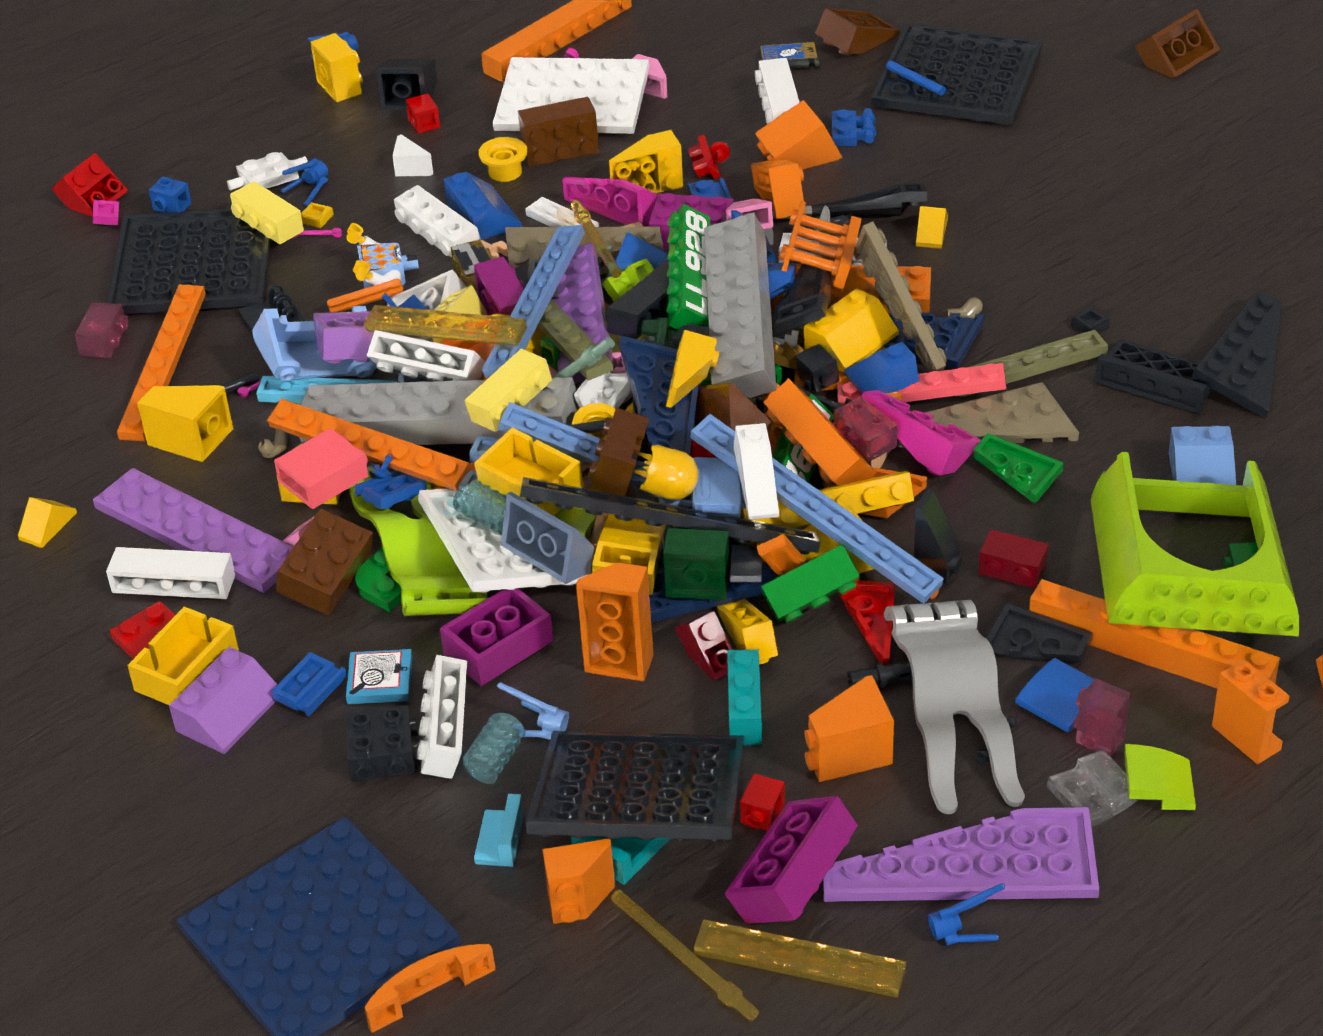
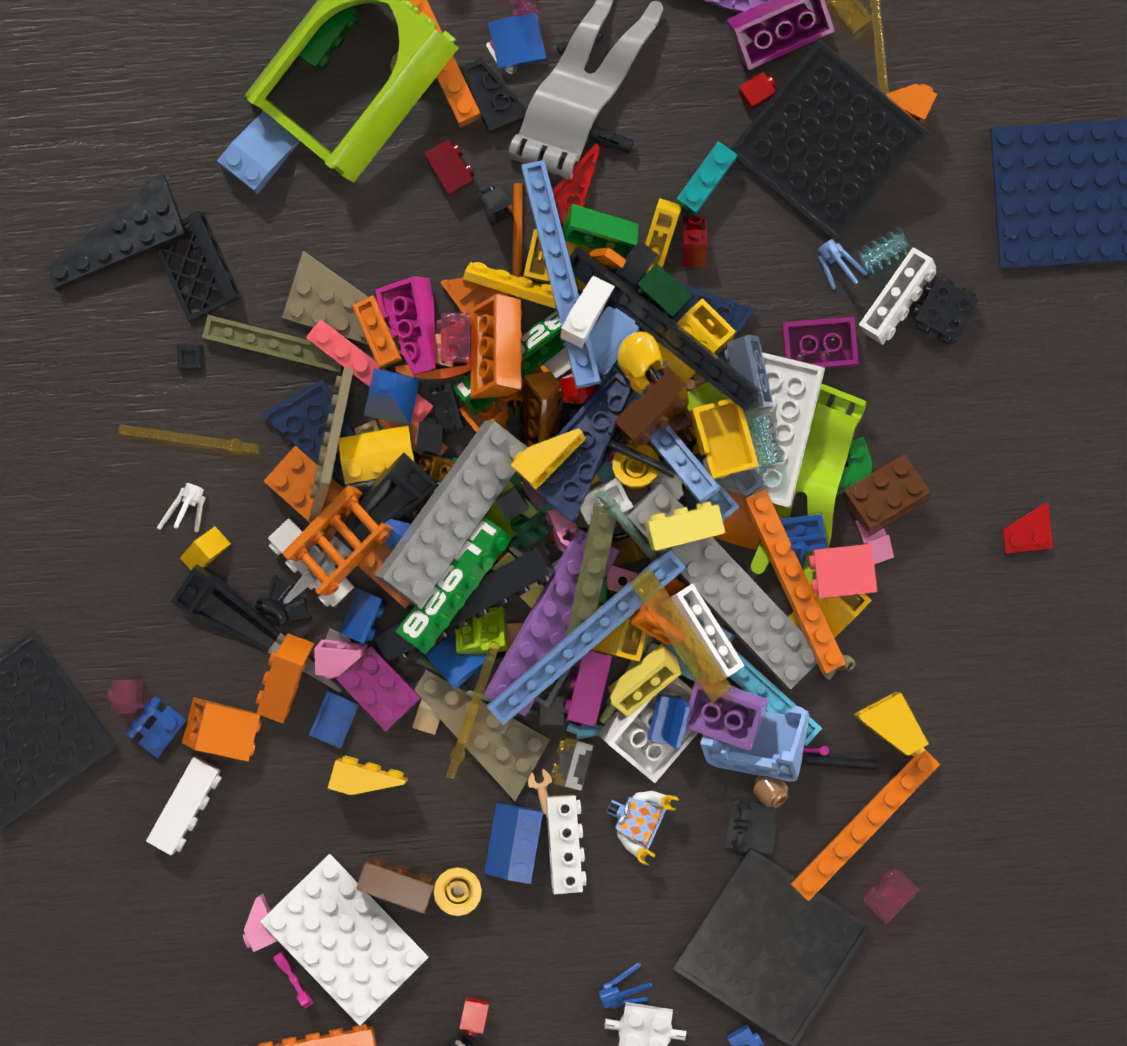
camera: 145 degrees left, 45 degrees up
(43, 521) = (1035, 702): yellow slope -> none
(171, 573) = (986, 568): white brick -> none
(180, 654) = (1025, 472): yellow piece -> none
(193, 526) = (941, 615): medium lavender plate -> none
(223, 701) = (1016, 419): medium lavender slope -> none
(266, 212) = (691, 947): light yellow brick -> none
(309, 684) = (956, 399): blue plate -> none
(316, 215) = (641, 940): yellow tile -> none
(335, 232) = (640, 905): dark pink hinge -> none
(364, 296) = (684, 795): orange axle -> none
(379, 676) = (907, 376): tile -> none
(411, 159) = (528, 955): white slope -> none
(467, 962) = (1002, 102): orange slope -> none
(500, 834) = (920, 188): medium azure panel -> none
(552, 214) = (464, 789): white tile -> none
(612, 198) = (407, 754): dark pink wedge -> none
(616, 621) = (754, 268): orange slope -> none
(705, 158) = (297, 766): red hips -> none
(797, 54) = (121, 872): piece -> none
(850, 733) = (672, 94): orange slope -> none
(854, 30) = (43, 856): reddish brown slope -> none
(894, 116) = (126, 695): none -> clear pink brick
(915, 77) = (63, 739): blue bar -> none
(944, 406) = (377, 332): none -> orange tile
(969, 309) = (265, 432): dark tan arm -> none
(982, 243) = (190, 496): none -> white plant
(986, 291) = (233, 445): none -> clear yellow bar
(1018, 466) = (370, 249): green wing -> none

